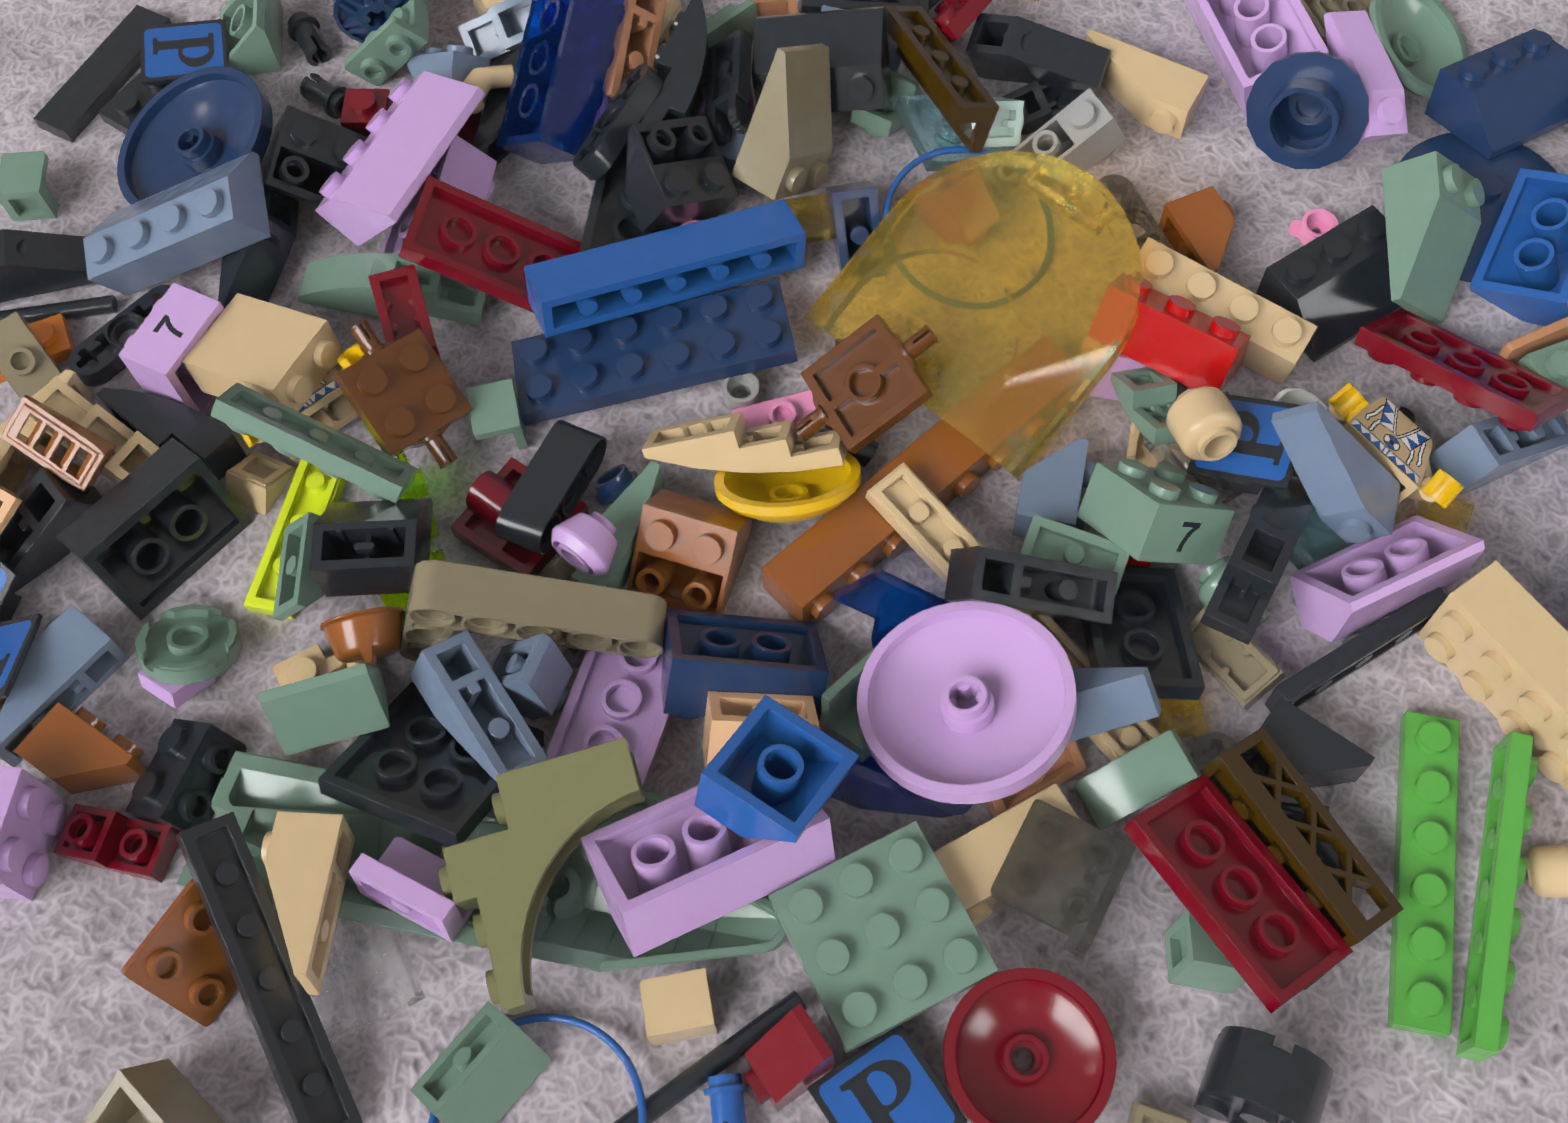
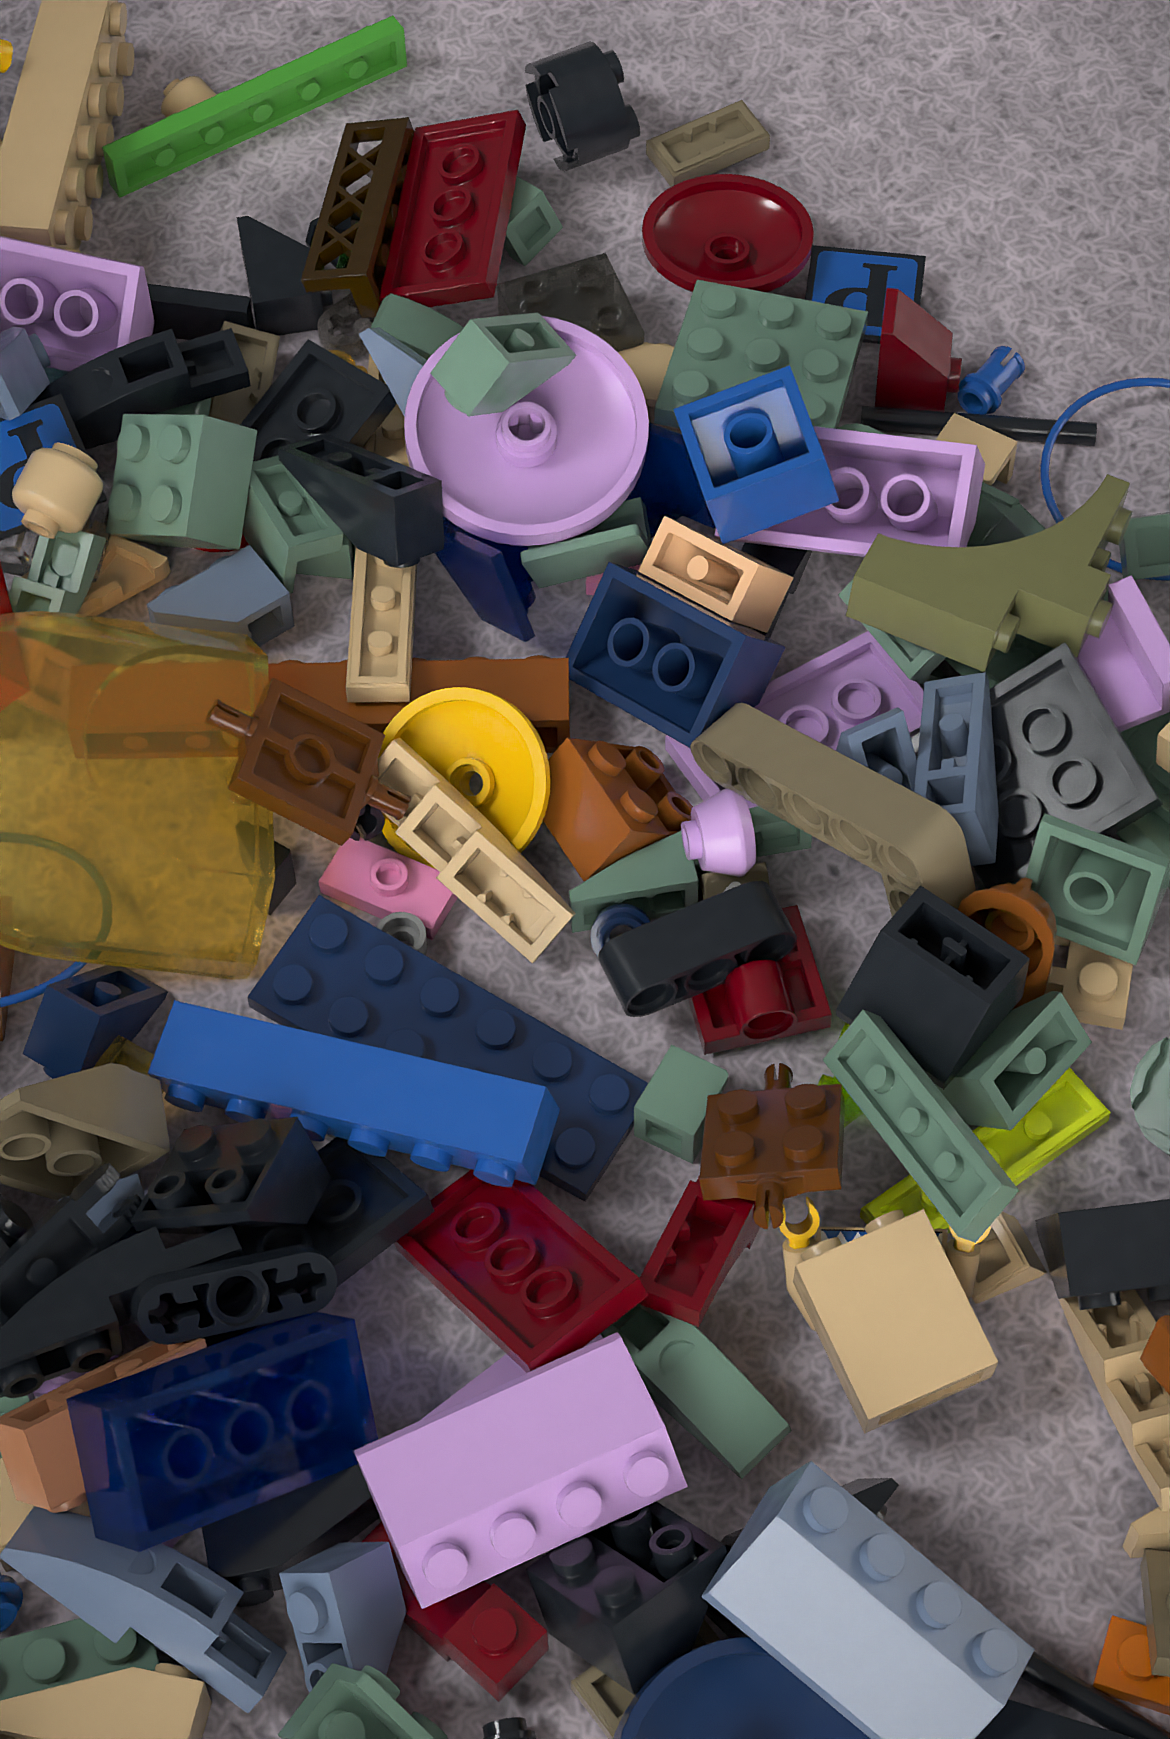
camera: 140 degrees left, 5 degrees down
(95, 345) = (1075, 1556): black beam -> none
(165, 339) = (980, 1437): lavender brick -> none
(166, 419) = (1056, 1379): black slope -> none
(490, 78) = (327, 1530): tan arm -> none
(1010, 698) = (500, 362): none -> sand green slope
(1424, 876) = (271, 167): bright green plate -> none

